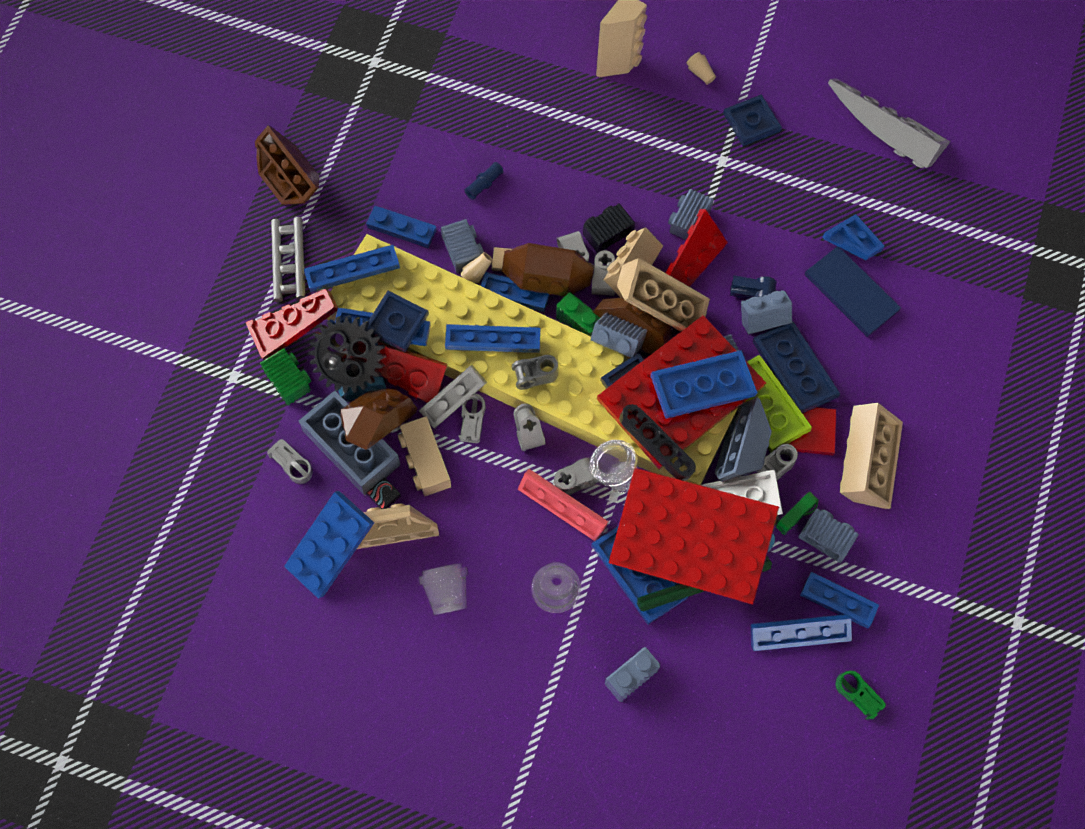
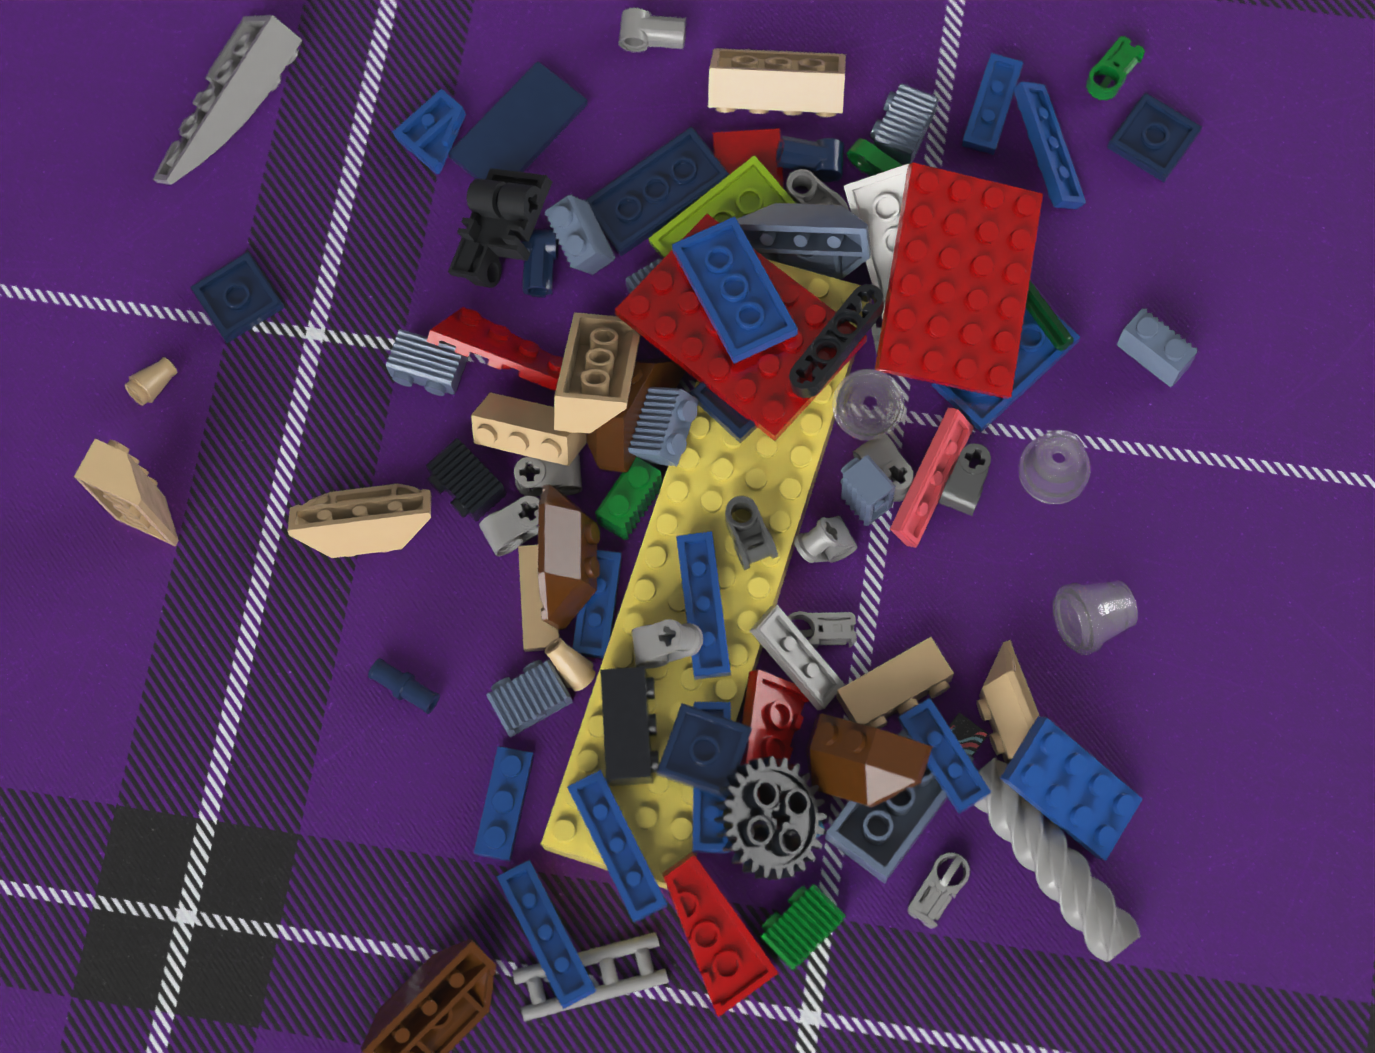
camera: 90 degrees left, 5 degrees up
(283, 532) = (1059, 870): none -> light grey piece
(315, 234) = (546, 934): none -> blue plate
(364, 464) = (947, 758): none -> blue plate
(424, 282) = (628, 726): none -> black brick
(471, 310) = (665, 642): none -> light grey piece
(554, 525) = (966, 484): none -> dark grey piece
(557, 455) = (866, 489): none -> sand blue brick
(592, 164) = (361, 519): none -> tan wedge
(780, 265) = (501, 217): none -> black plate
(801, 714) = (1154, 137): none -> dark blue tile
(807, 474) = (821, 157): none -> dark blue piece
(918, 377) = (643, 30): none -> light grey piece

